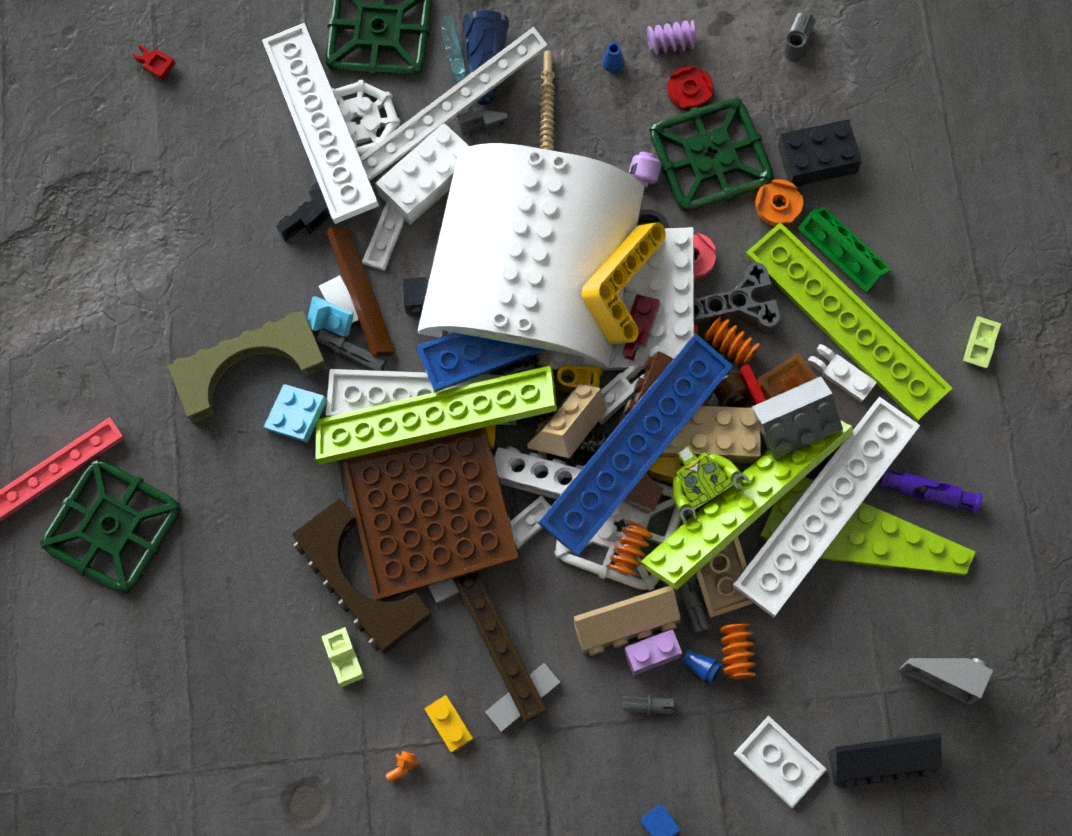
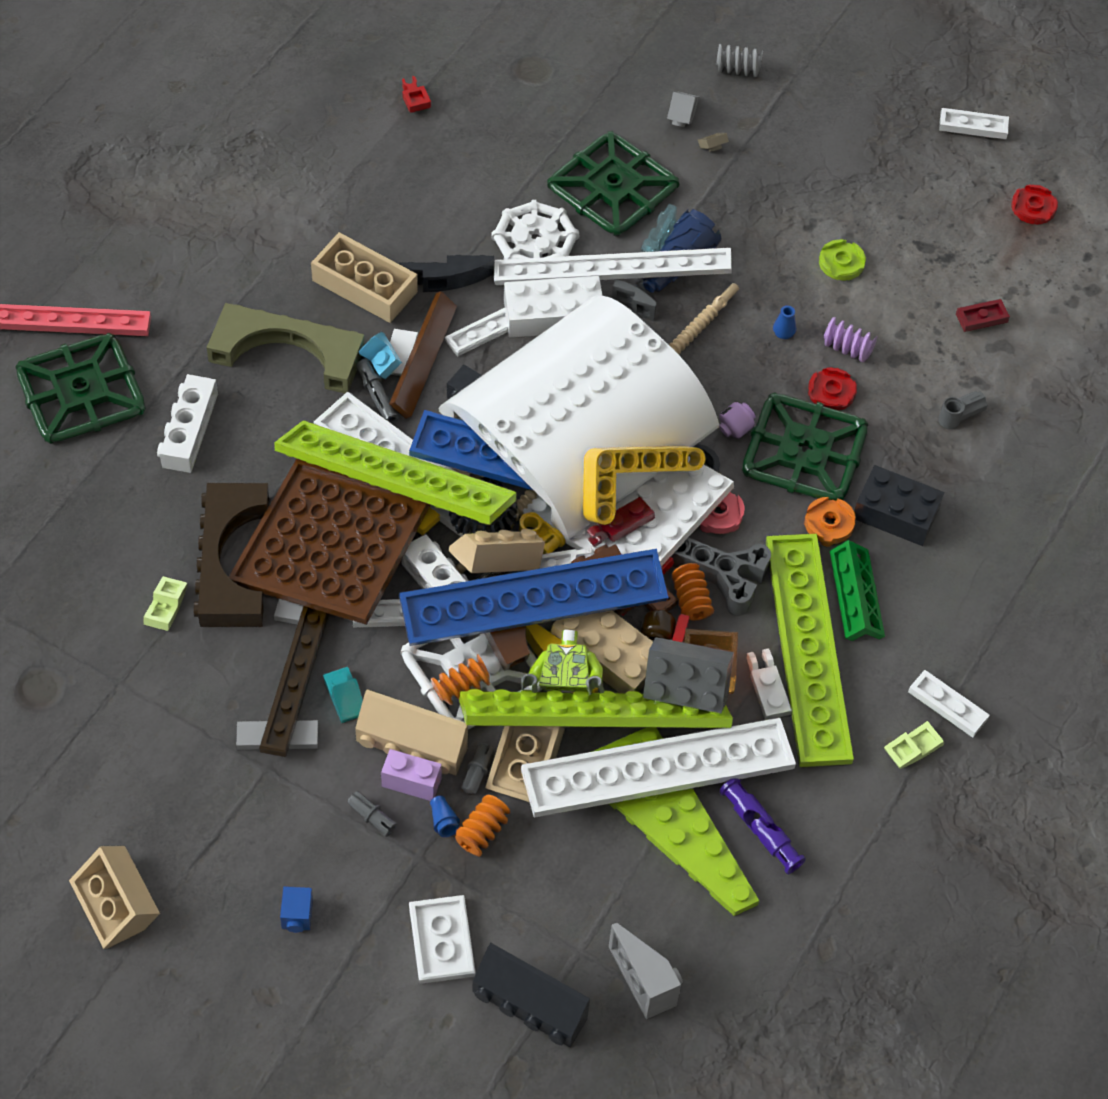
camera: 30 degrees right, 15 degrees down
(214, 456) = (188, 423): none -> white brick
(257, 258) = (364, 277): none -> tan brick
(295, 413) = (292, 405): plate -> none
(320, 124) = (500, 215): white plate -> none
(407, 762) = (141, 712): orange plate -> none
(448, 724) = (201, 711): yellow plate -> none
(544, 624) = (344, 693): none -> teal slope
(980, 290) = (948, 703): none -> white plate

